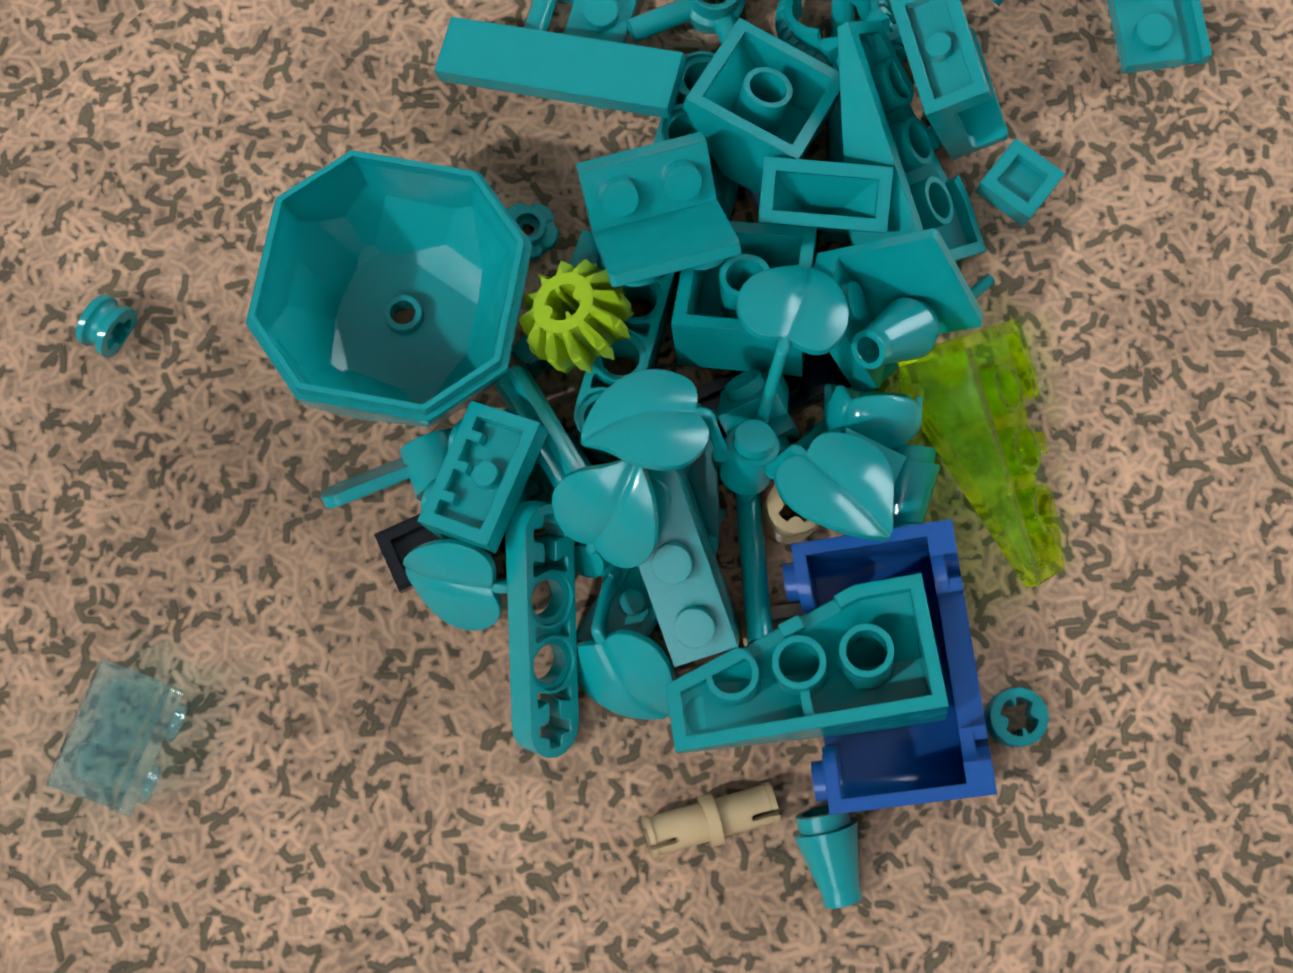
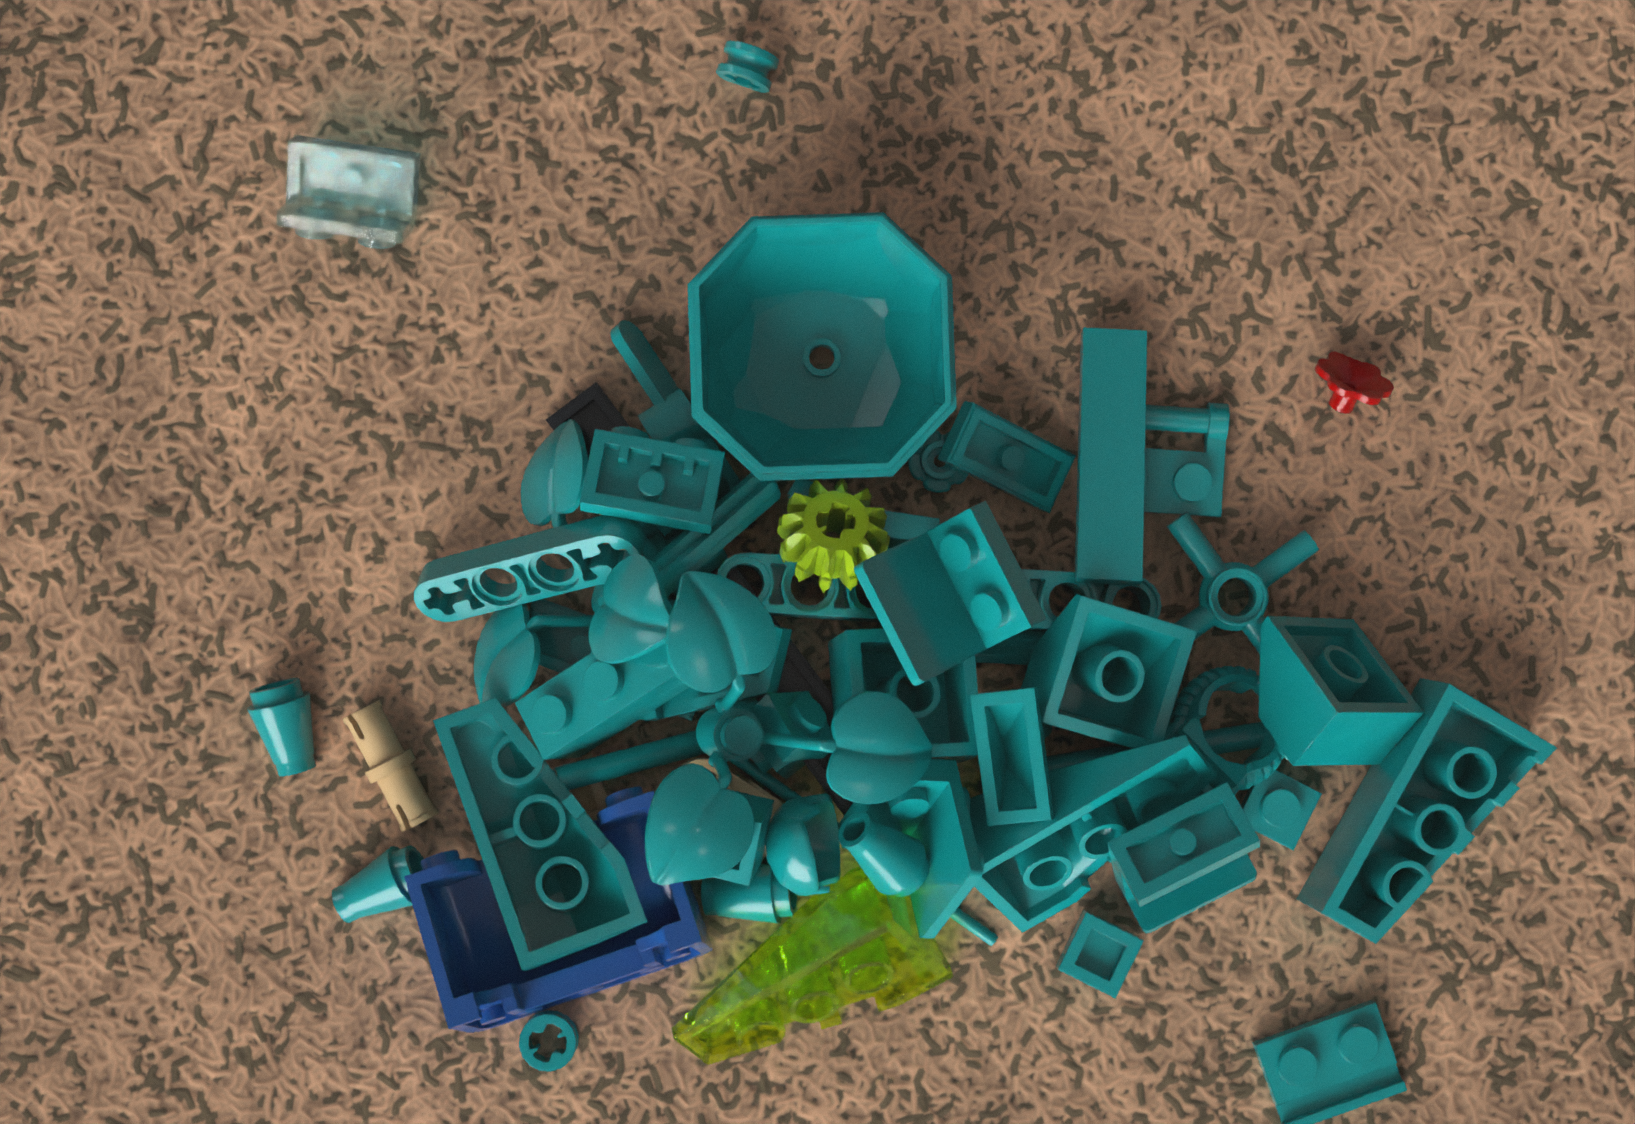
camera: 80 degrees right, 10 degrees up
(539, 165) = (1006, 456): none -> teal plate
(646, 921) = (284, 724): none -> teal cone

